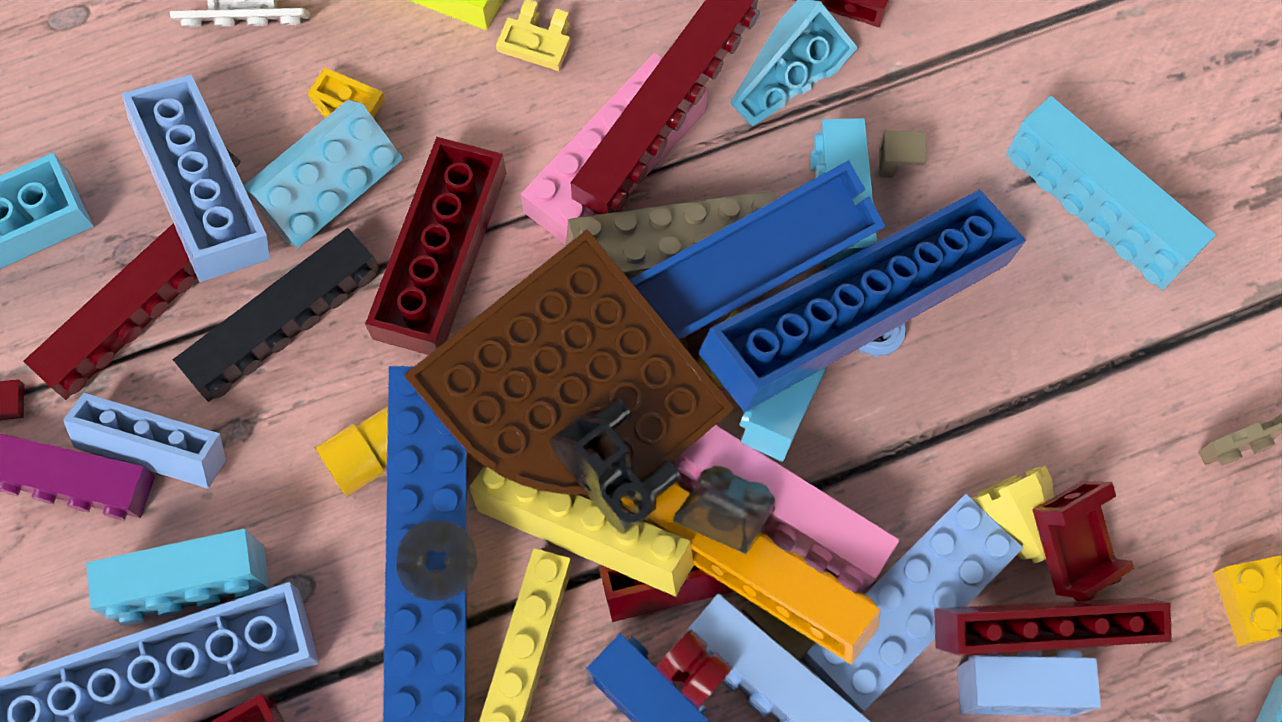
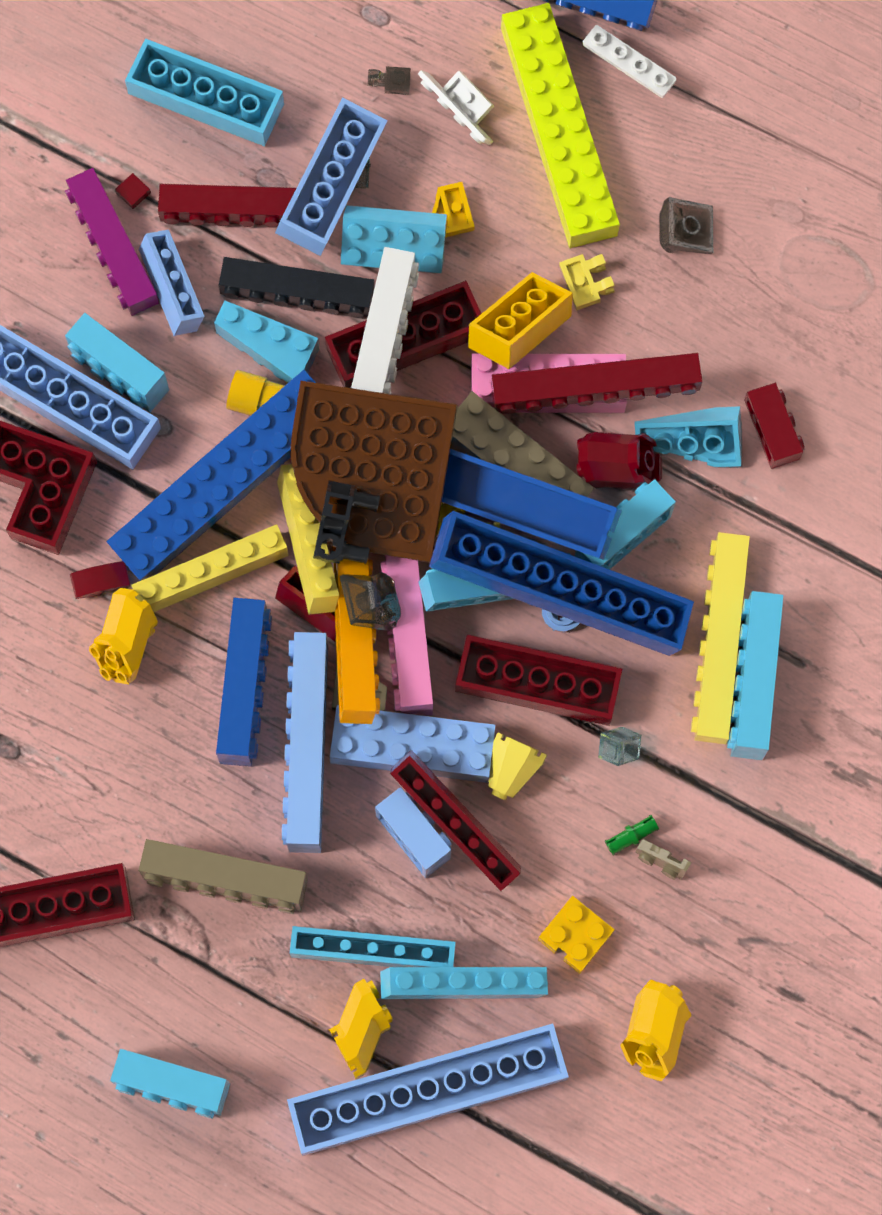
camera: 50 degrees right, 5 degrees up
(151, 49) = (395, 80): none -> clear smoke plate
(310, 392) = (267, 341): none -> medium azure wedge
(412, 239) = (386, 321): none -> white brick
(413, 558) = (216, 466): clear smoke plate -> none
(529, 119) = (520, 320): none -> yellow brick
(694, 668) = (275, 651): dark red wheel -> none
(760, 147) = (618, 460): none -> dark red brick
(901, 149) = (688, 541): dark tan panel -> none
(941, 410) = (538, 680): none -> dark red brick
(1034, 201) = (721, 638): none -> light yellow brick
(1077, 387) = (619, 746): none -> clear light blue panel
(1079, 541) = (519, 804): dark red panel -> none
(1189, 452) = (631, 835): none -> green pin

